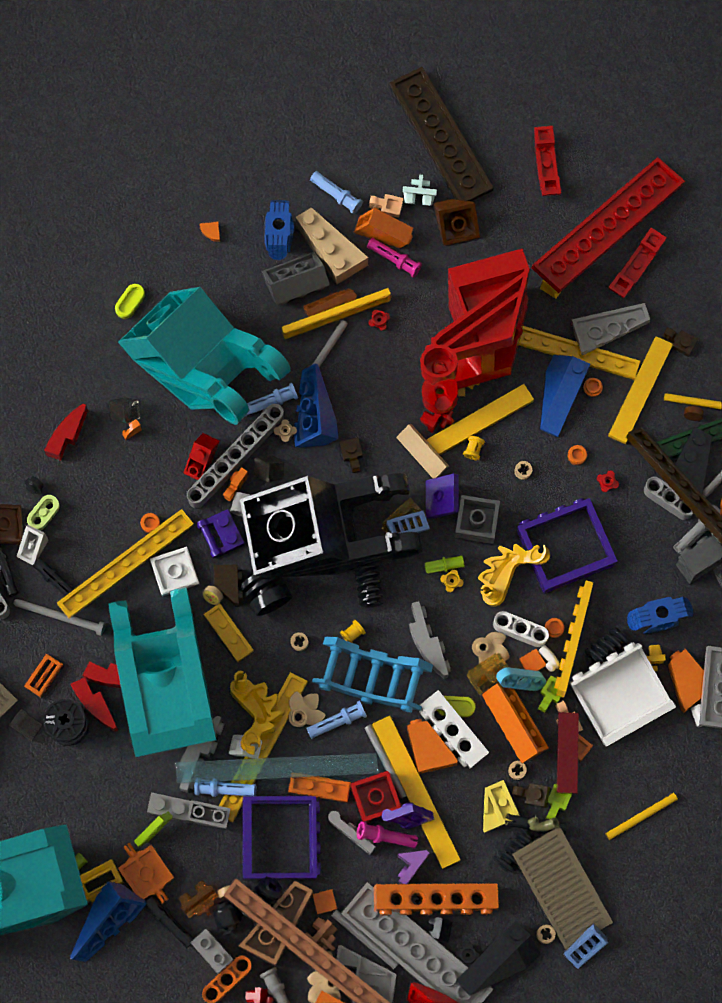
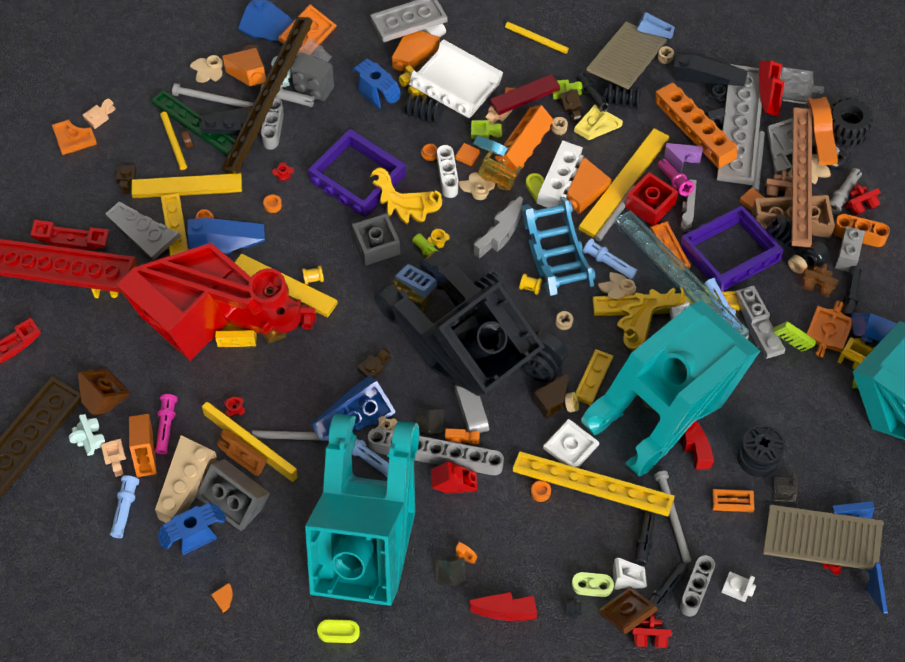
camera: 120 degrees left, 15 degrees down
(94, 703) = (727, 442): red slope -> none
(226, 531) = (508, 424): dark purple plate -> none
(408, 815) = (650, 163): dark purple plate -> none
(422, 451) = (339, 311): tan tile -> none
(442, 496) = (372, 273): dark purple plate -> none
(517, 468) = (309, 238): tan bush -> none
(543, 826) = (595, 84): olive arm -> none
(553, 662) = (460, 137): white arm -> none
(575, 631) = (432, 129): yellow plate -> none

